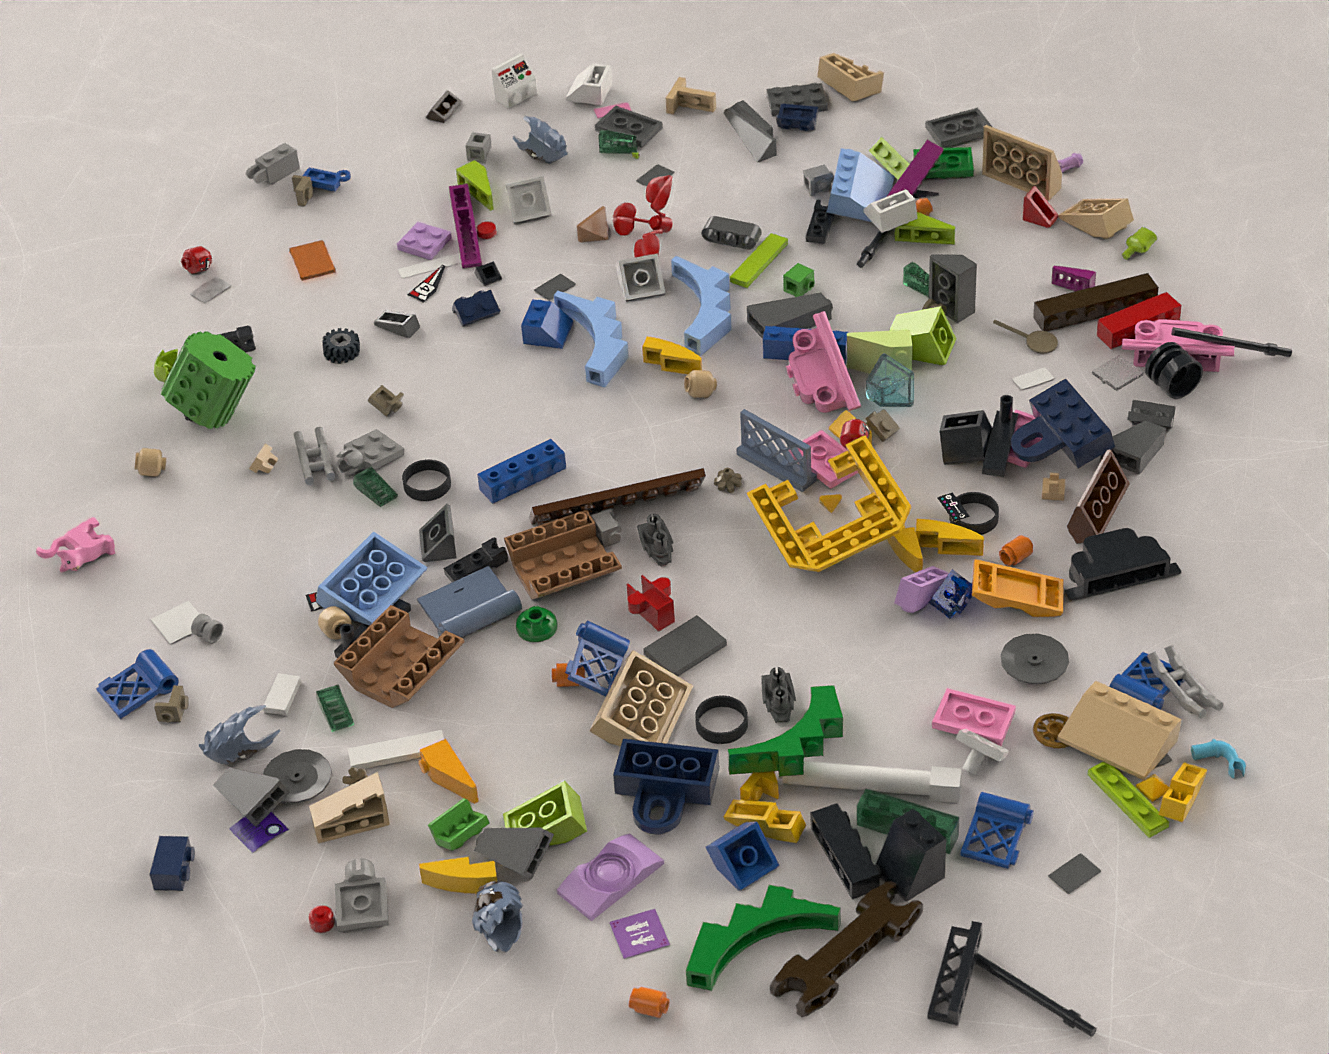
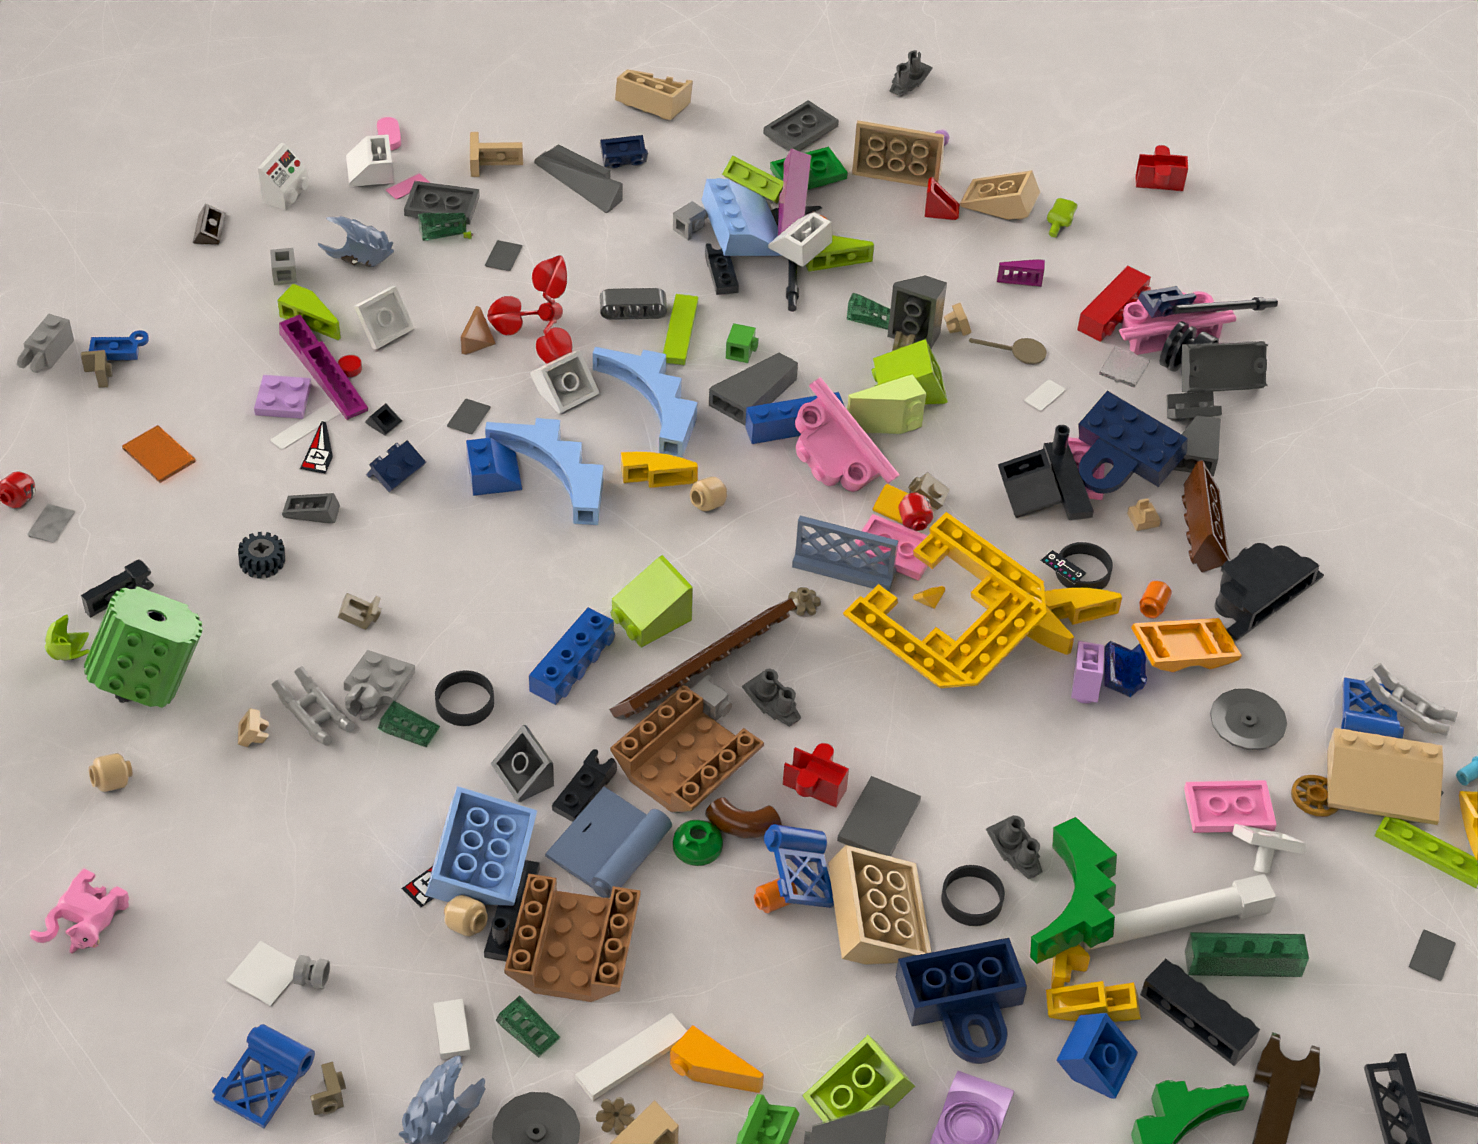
camera: 30 degrees left, 5 degrees up
(572, 617) = (740, 822): none -> reddish brown cylinder
(603, 450) = (653, 603): none -> lime slope
(621, 67) = (390, 126): none -> bright pink tile
(806, 95) = (605, 126): dark grey plate -> none
(890, 384) = (916, 440): clear light blue slope -> none
(912, 855) = (1281, 994): black slope -> none
(994, 303) = (957, 320): none -> tan tile
(1000, 814) = (1328, 911): blue piece -> none
(1081, 106) = (909, 74): none -> dark grey connector
(1093, 302) = (1059, 294): dark brown brick -> none
(1152, 787) = (1447, 829): yellow slope -> none
(1164, 323) = (1161, 301): none -> dark blue bracket
(1193, 387) = (1224, 366): none -> dark grey piece
(1255, 225) = (1161, 170): none -> red piece

